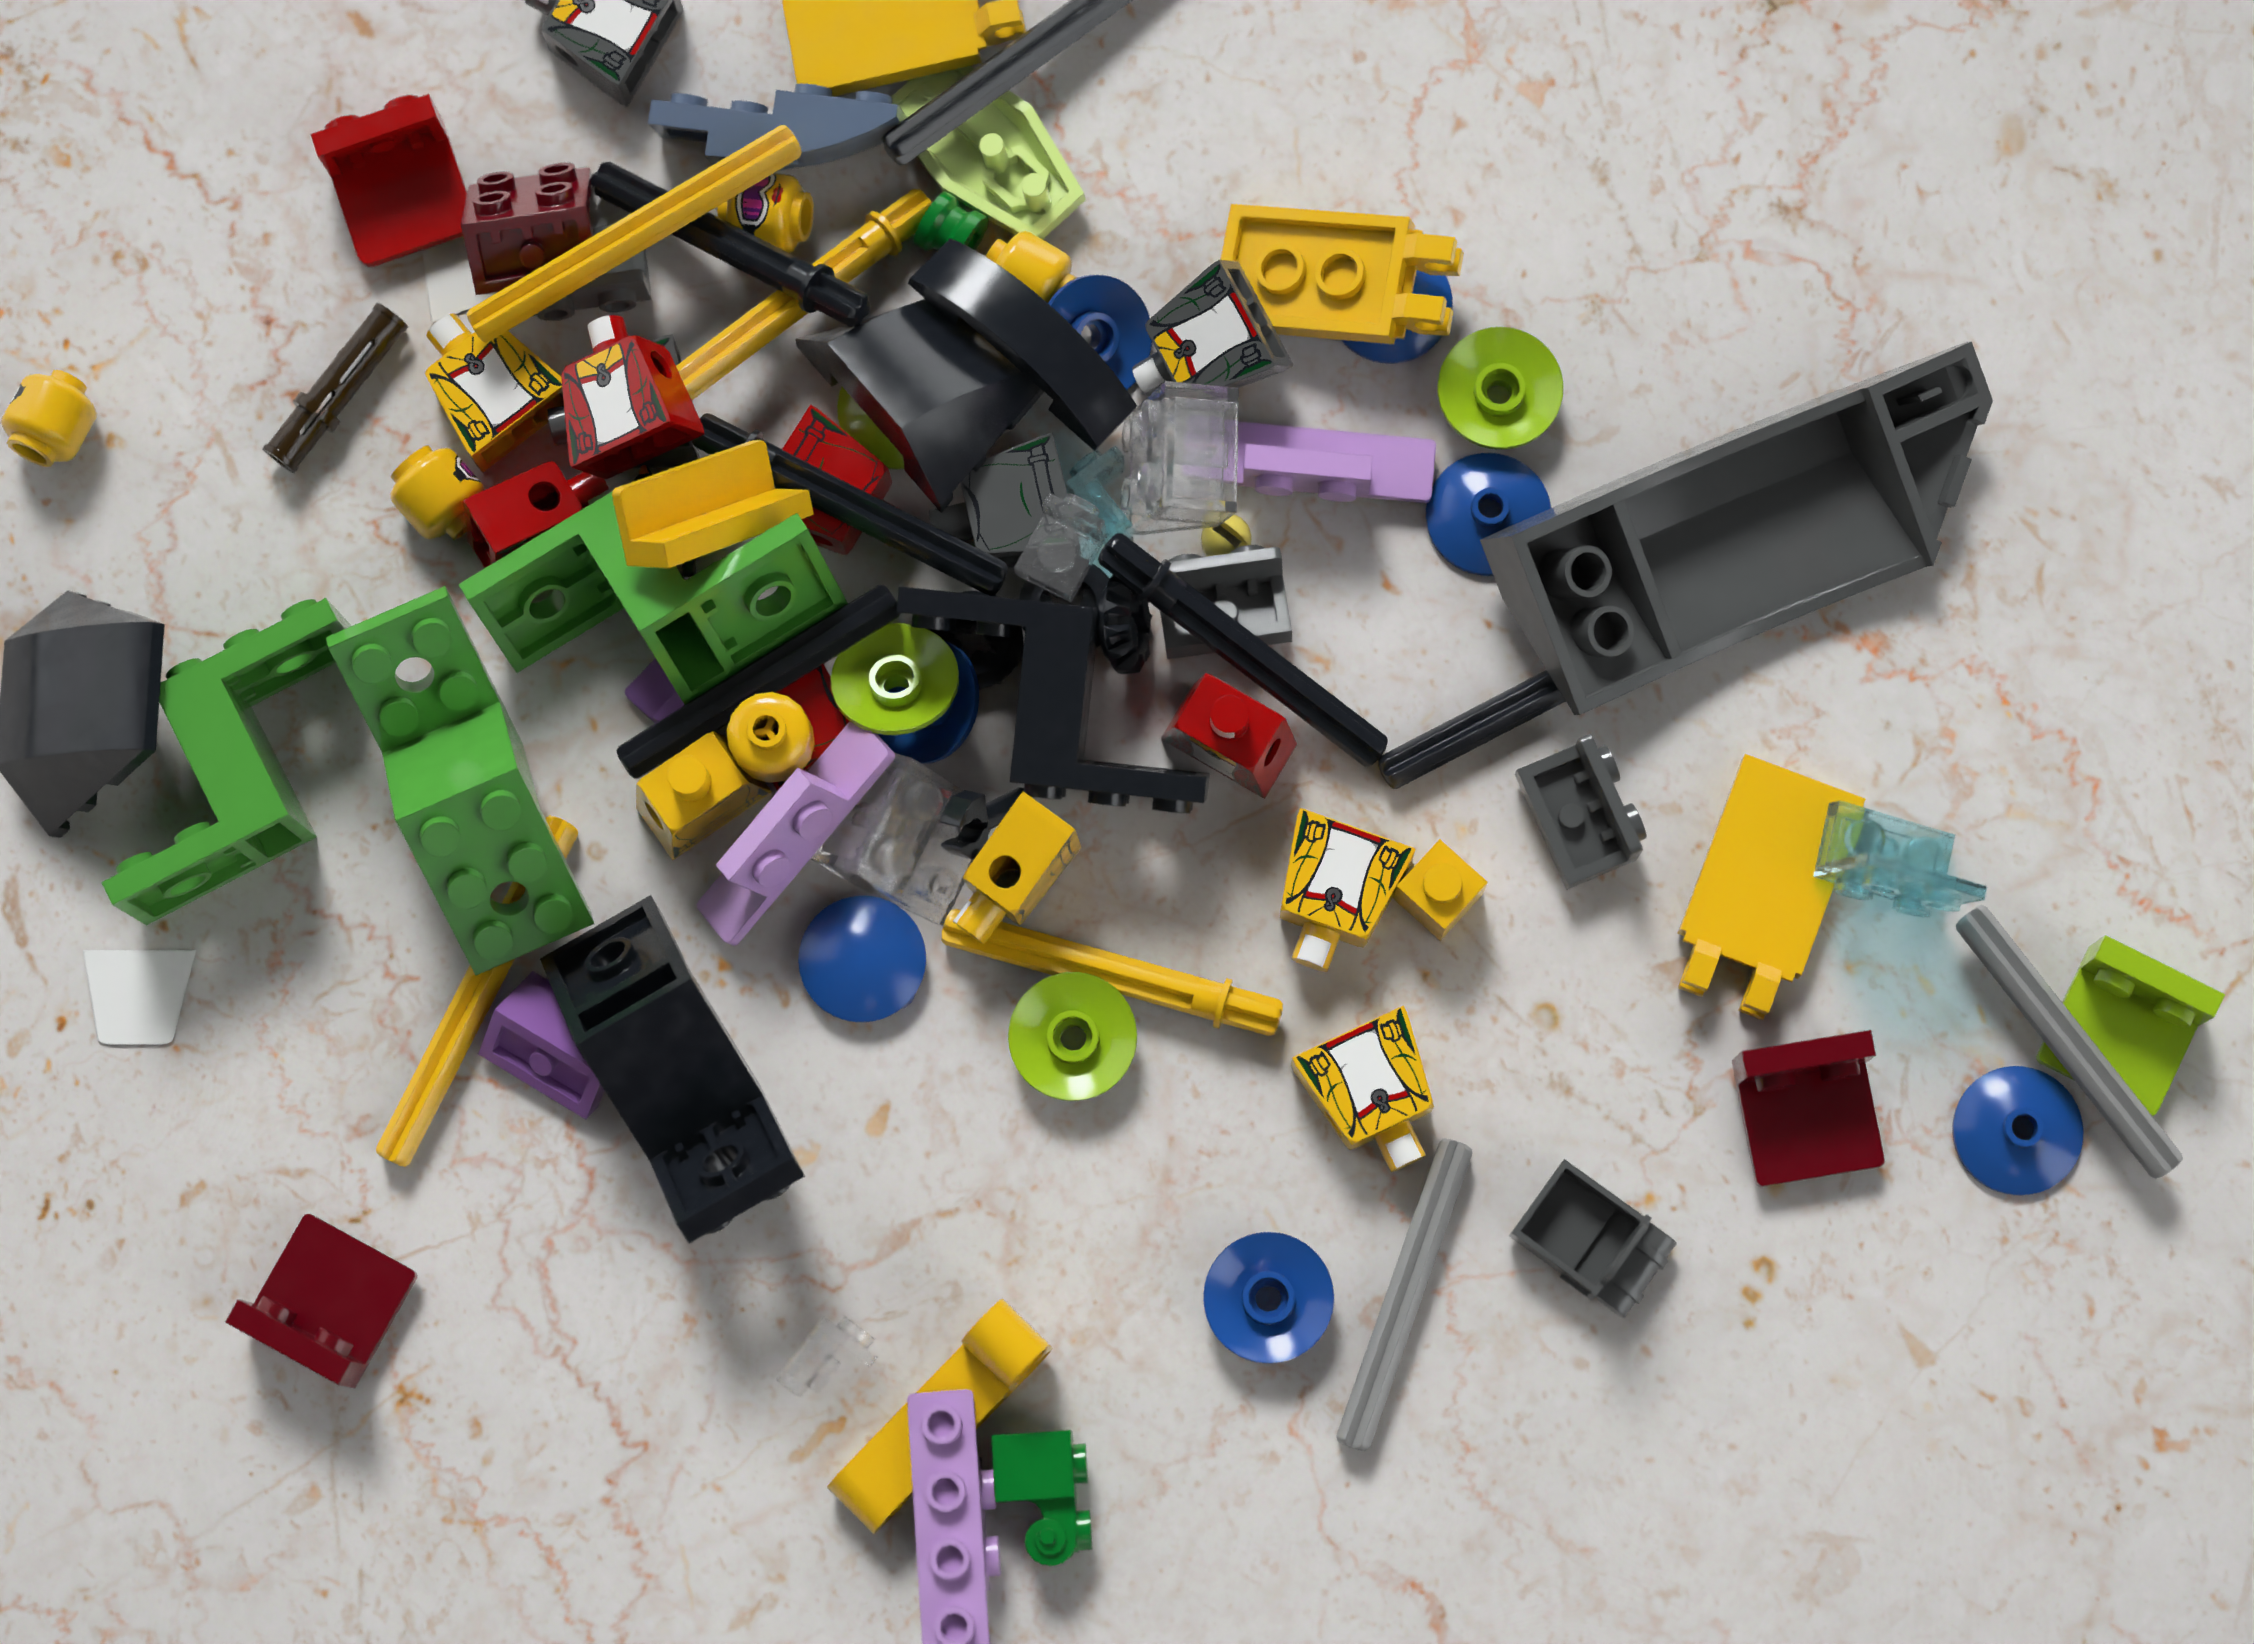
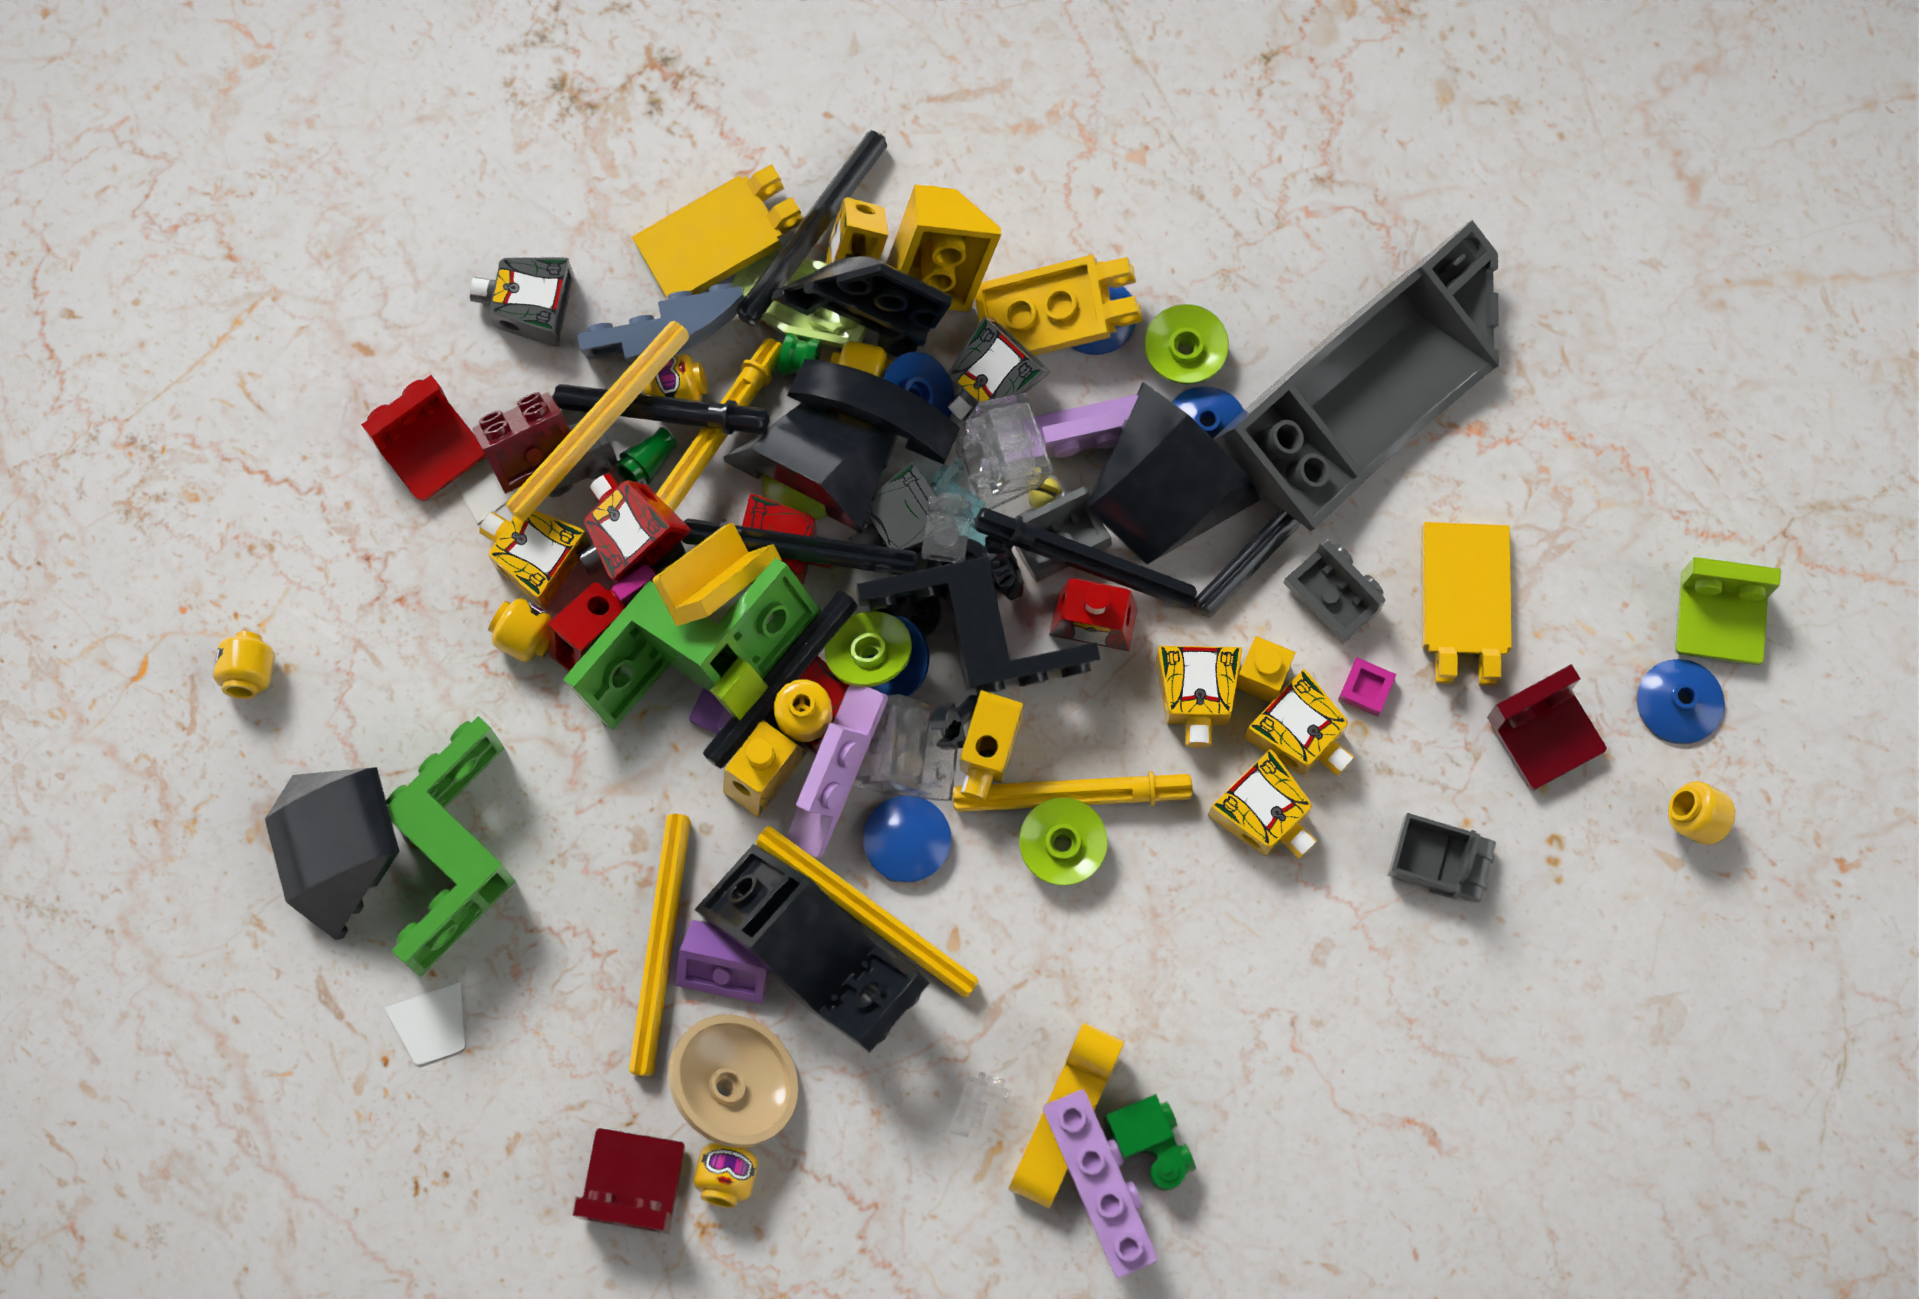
camera: 25 degrees left, 5 degrees down
(291, 447) = (414, 625): dark brown pin -> none
(455, 1332) = (725, 1174): none -> yellow head
(460, 781) = (607, 807): bright green bracket -> none
(542, 1206) = (751, 1069): none -> tan dish
(598, 482) = (632, 584): none -> dark pink tile
(691, 304) = (646, 456): none -> green cone
(691, 678) = (739, 688): none -> lime tile
(771, 1042) = (870, 913): none -> yellow axle
(1067, 177) = (874, 297): none -> black wedge
(1093, 80) = (858, 231): none -> yellow torso
(1192, 144) = (945, 243): none -> yellow slope
(1273, 1262) = (1264, 948): blue dish -> none
(1395, 577) = (1166, 480): none -> black wedge
(1404, 1294) = (1335, 936): light grey axle -> none
(1463, 990) = (1302, 728): none -> torso
(1578, 961) = (1367, 686): none -> dark pink tile
(1891, 859) = (1542, 557): clear light blue bracket -> none
(1981, 1300) = (1701, 813): none -> yellow head
(2069, 1042) = (1693, 633): light grey axle -> none

